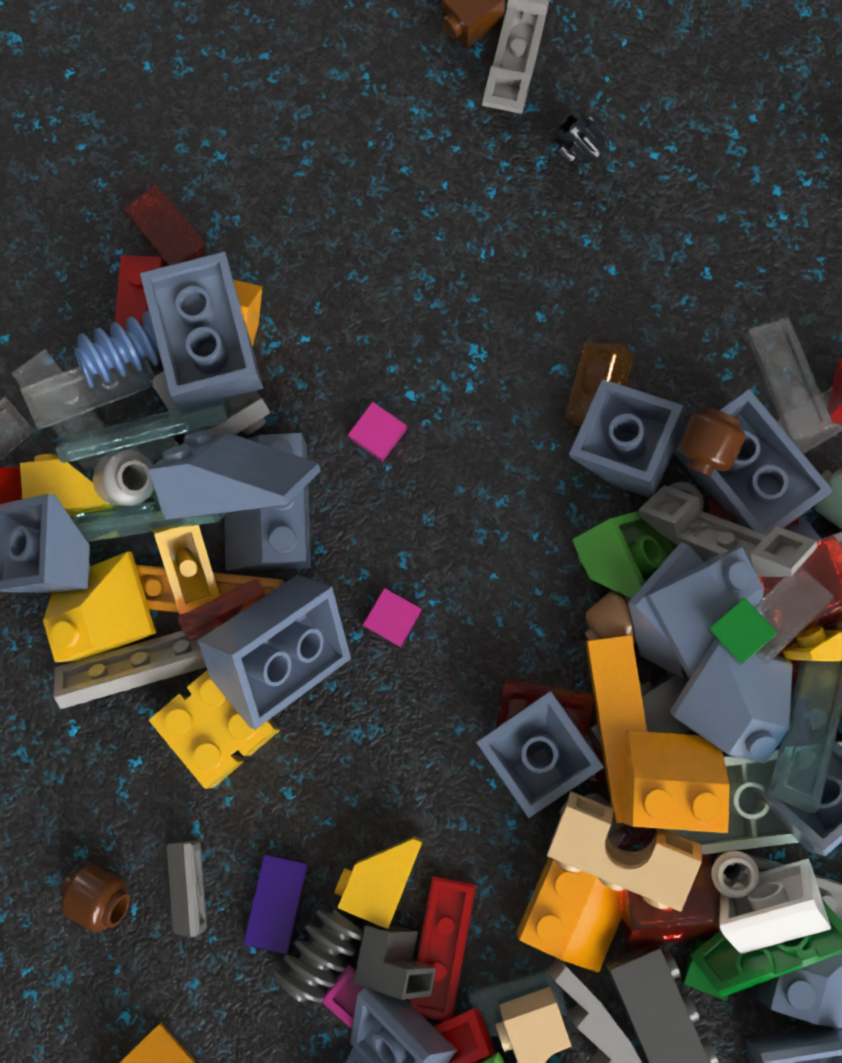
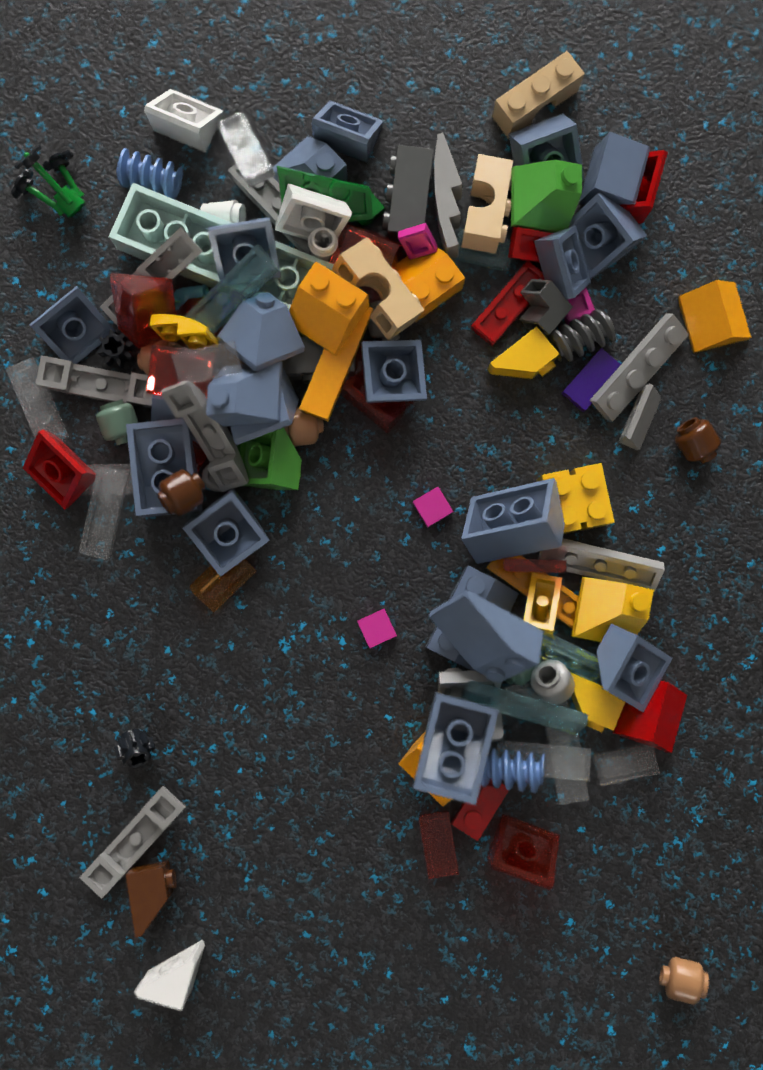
camera: 160 degrees left, 5 degrees up
(57, 270) = (524, 852): none -> clear red slope
(222, 958) = (639, 367): none -> light grey plate
(611, 956) = (417, 241): none -> dark pink tile
(742, 631) = (238, 364): green tile -> none

